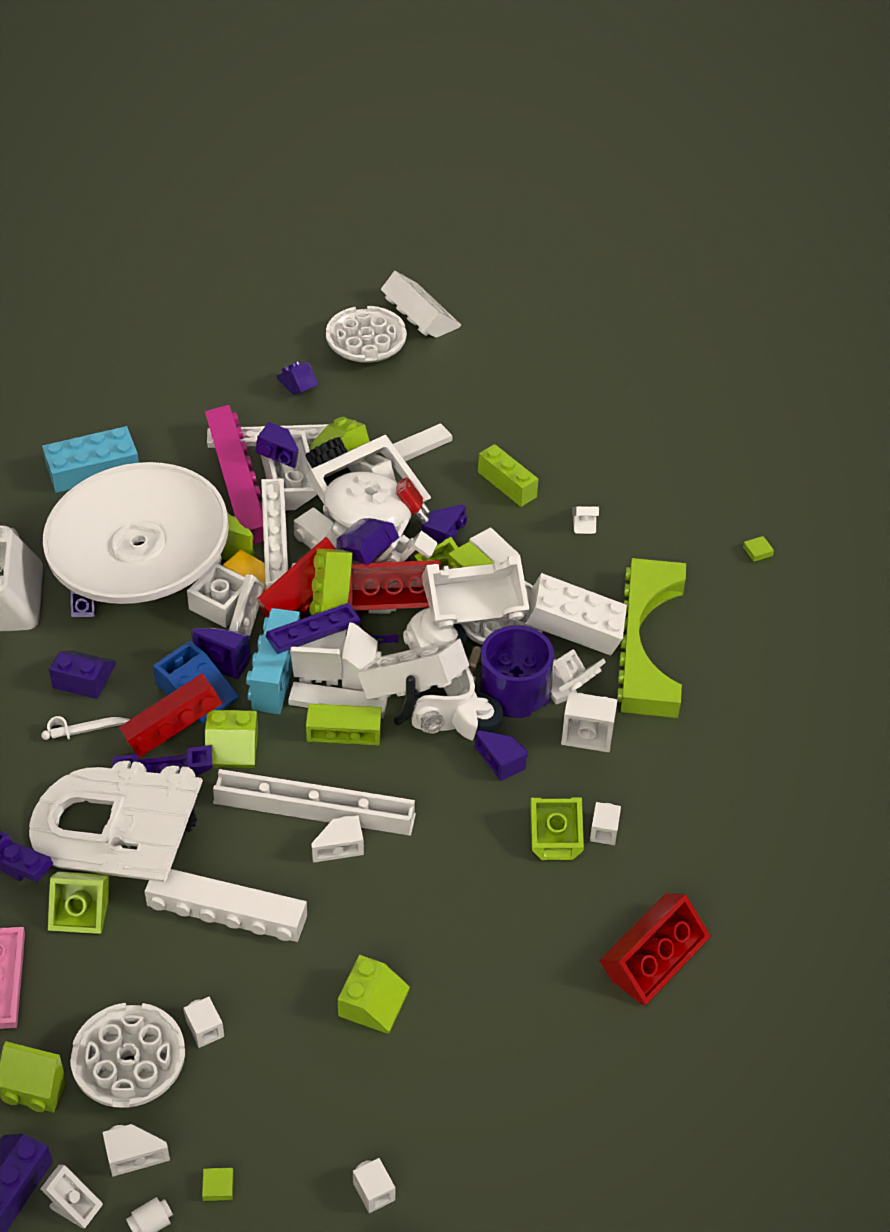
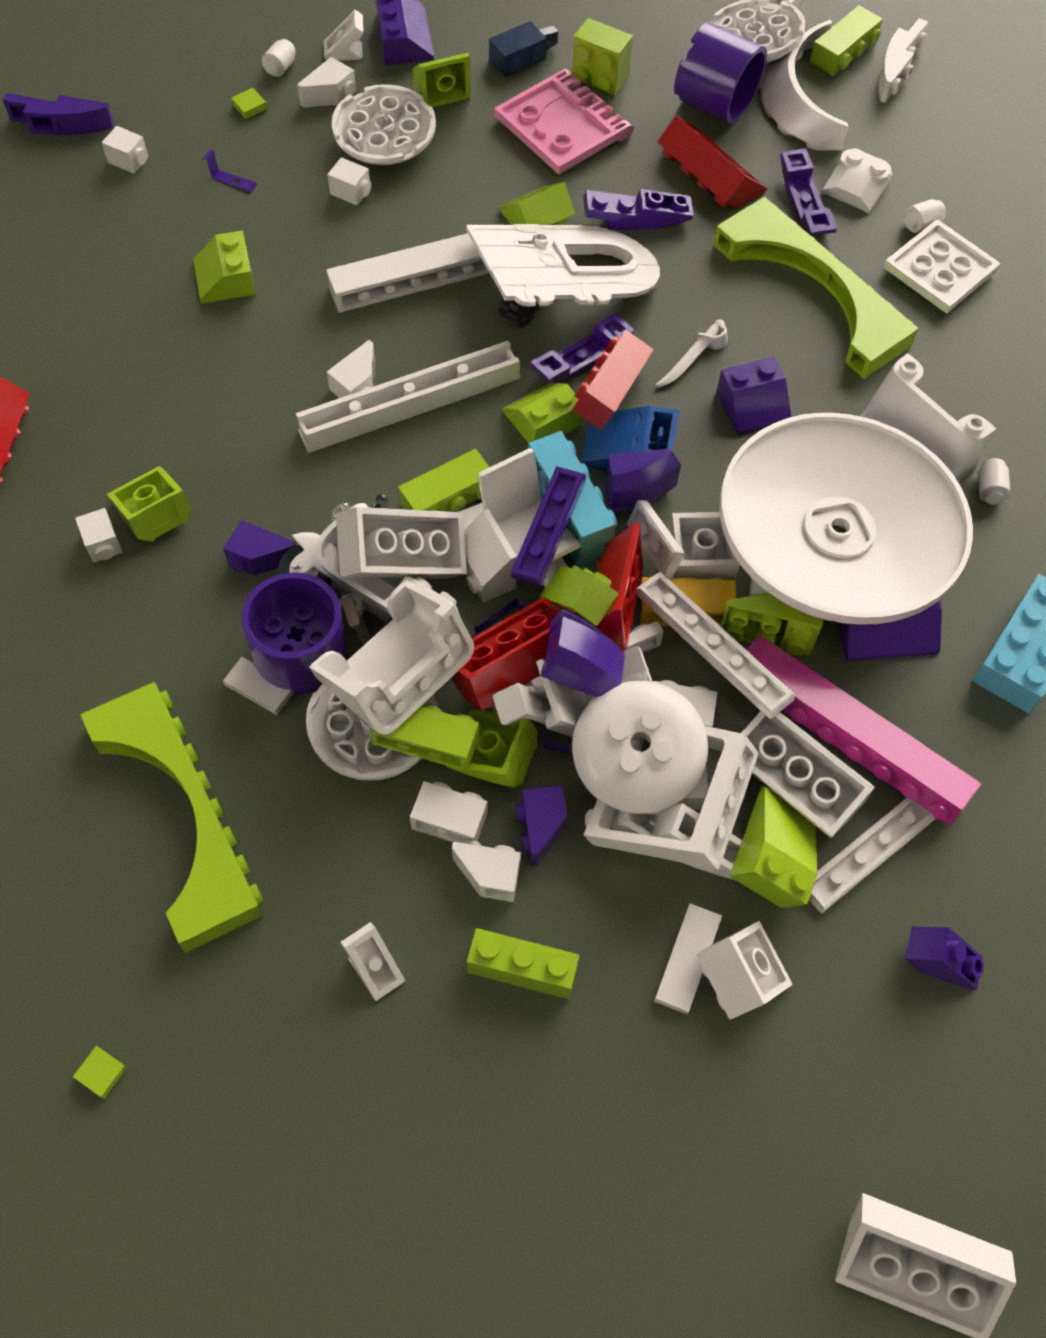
camera: 145 degrees right, 15 degrees up
(277, 445) = (827, 762): dark purple slope -> none
(299, 1110) = (225, 177): none -> dark purple piece
(326, 452) = (753, 780): black tyre -> none
(366, 334) = (971, 1110): white brick -> none
(400, 417) = (744, 970): none -> white slope
(412, 499) = (594, 786): red piece -> none
(489, 515) = (488, 869): none -> white slope
(573, 672) = (219, 662): white bracket -> none
(576, 614) = (273, 757): white brick -> none
(589, 721) = (175, 625): white brick -> none

